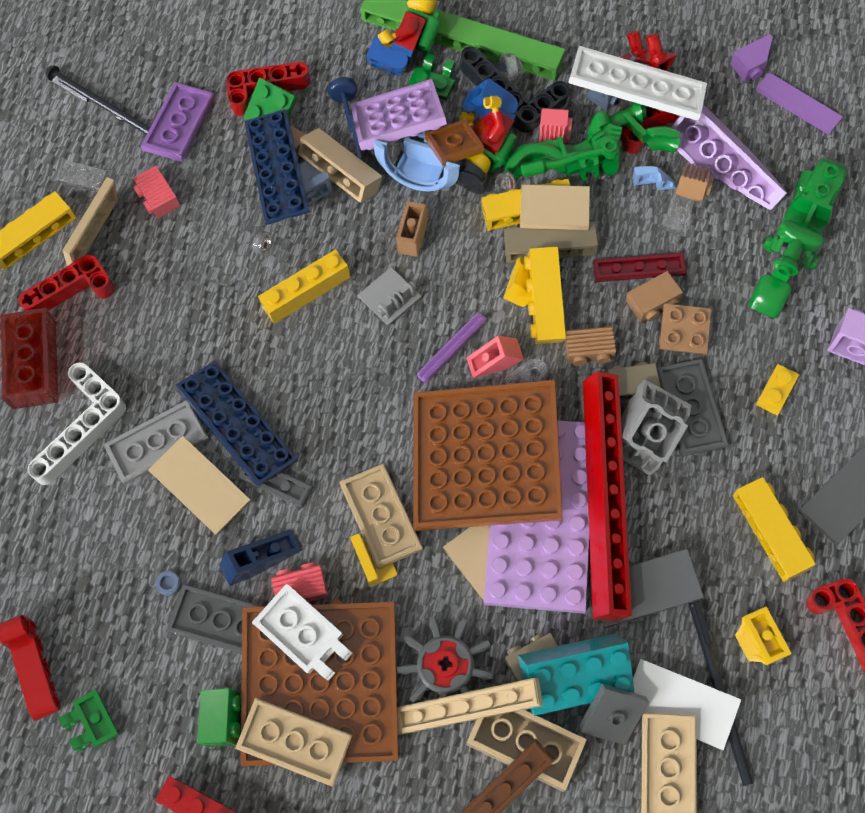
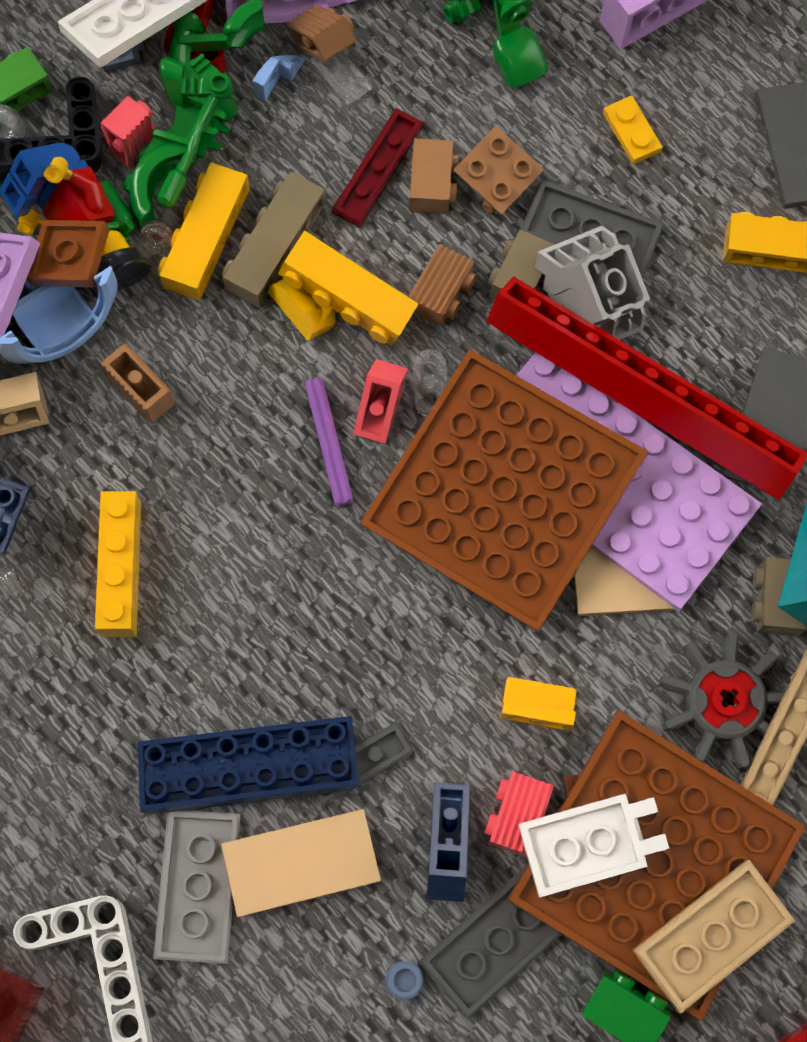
camera: 65 degrees left, 5 degrees up
(380, 516) = (490, 662): tan tile -> none
(389, 296) = (204, 470): light grey hinge -> none
(554, 207) = (240, 201): tan tile -> none

